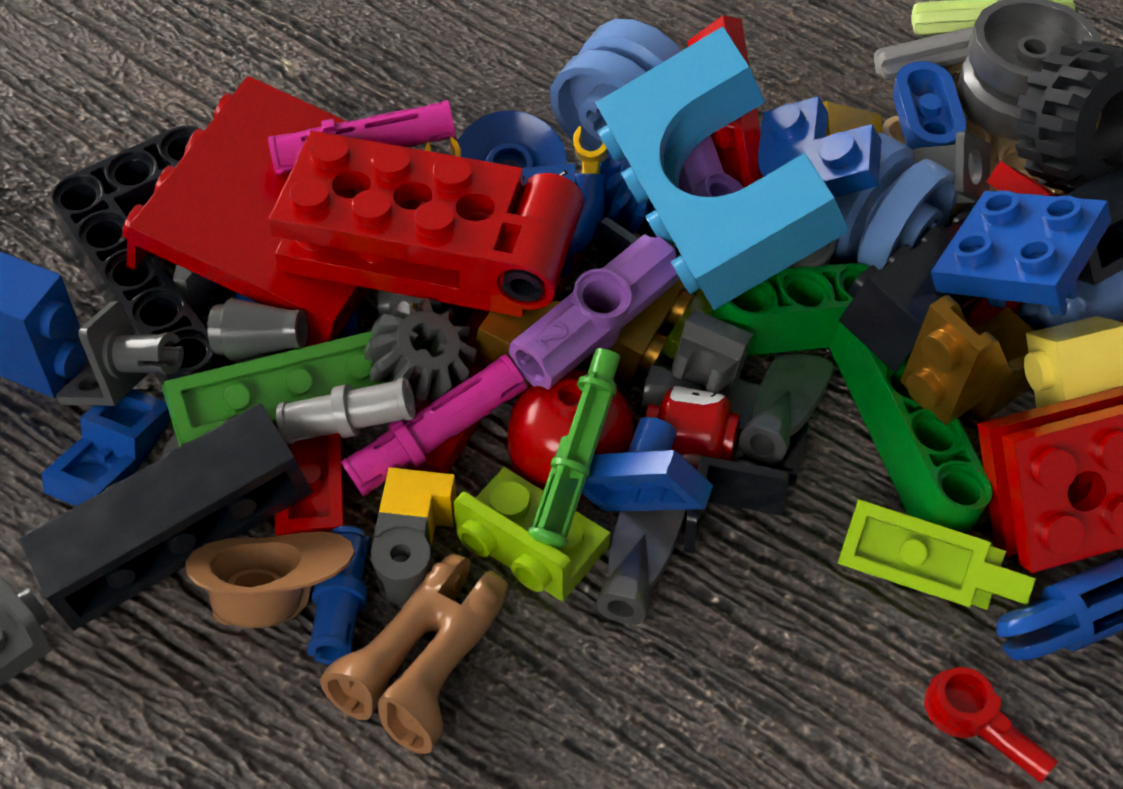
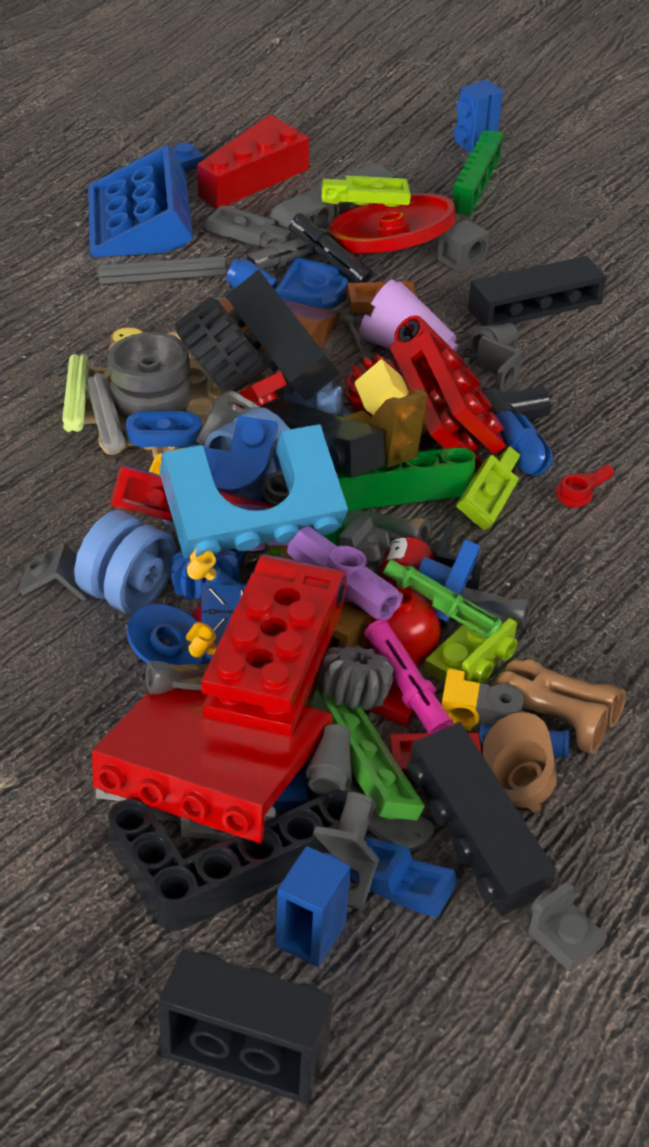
camera: 90 degrees left, 10 degrees down
(345, 411) = (405, 710): light grey pin -> none
(397, 128) = (186, 686): dark pink pin -> none
(1022, 249) = (336, 378): blue plate -> none

